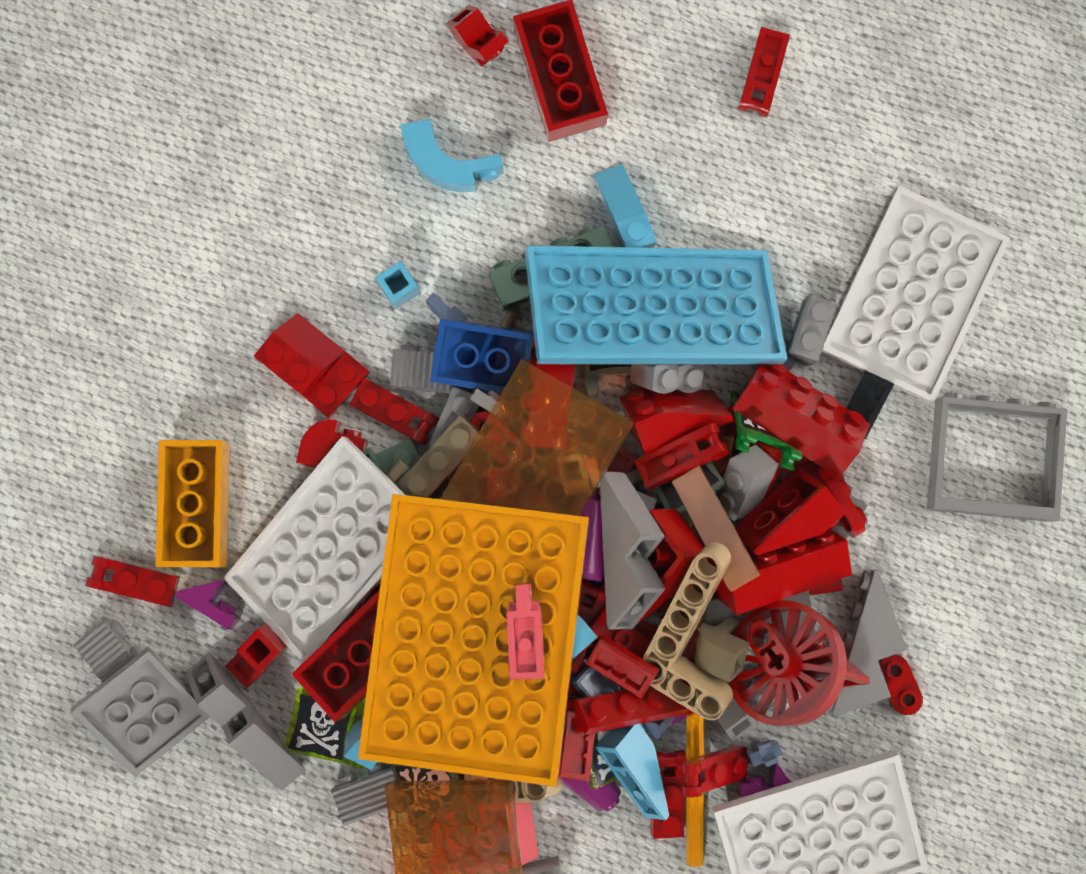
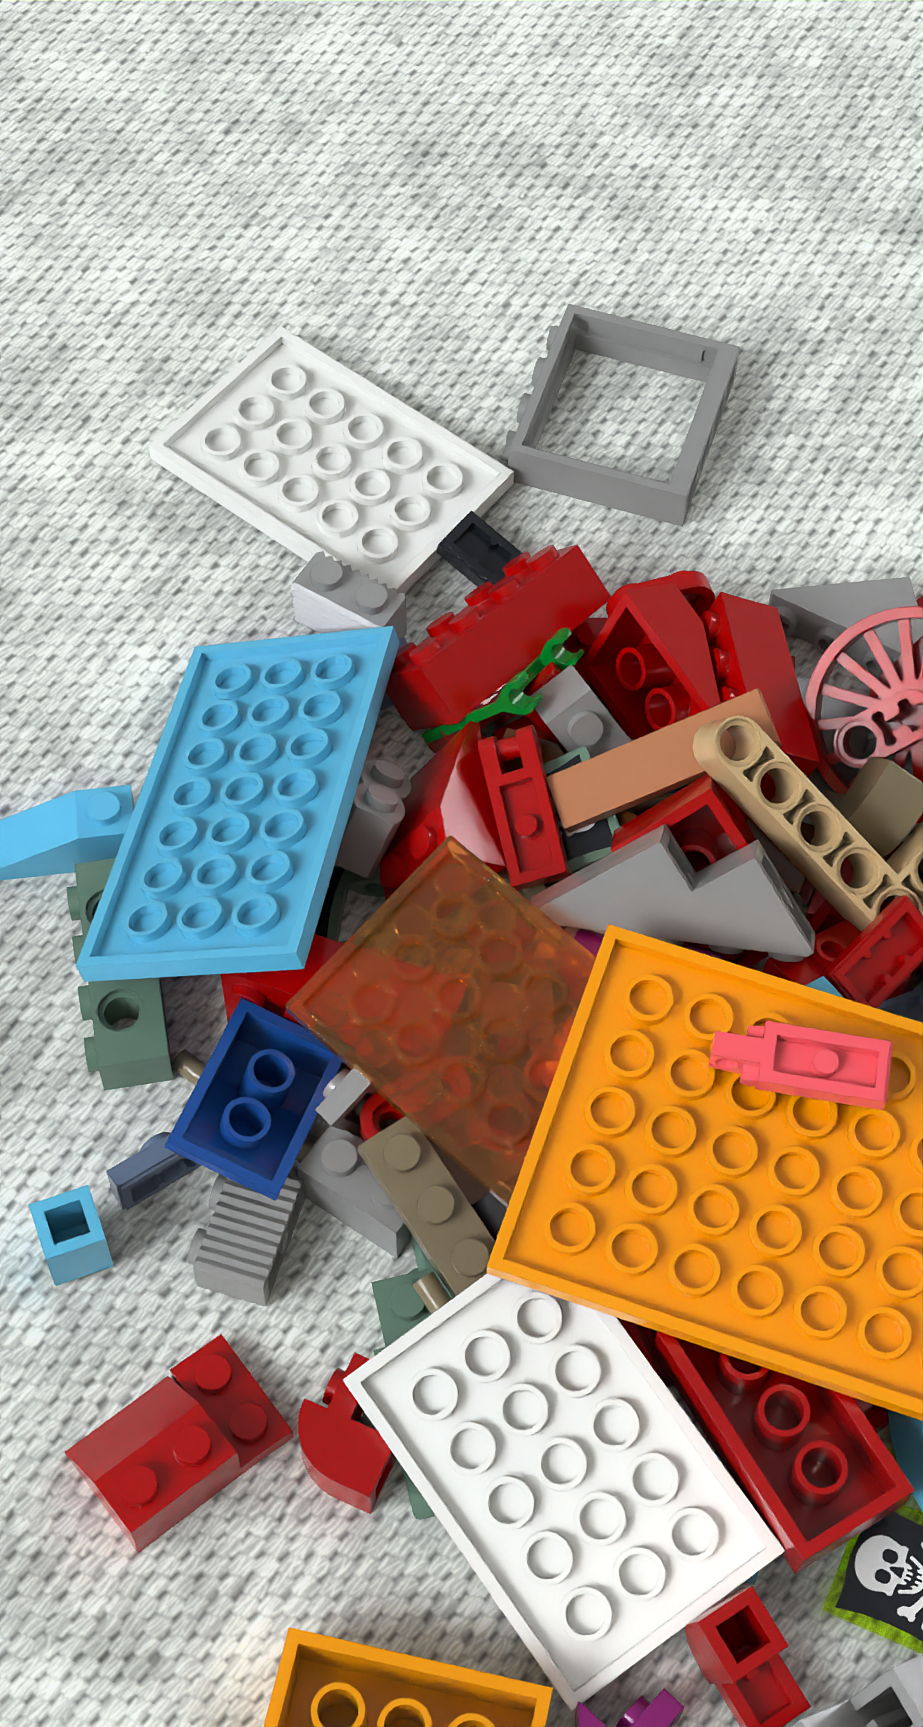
camera: 75 degrees left, 25 degrees down
(393, 411) = (310, 1309): red plate -> none

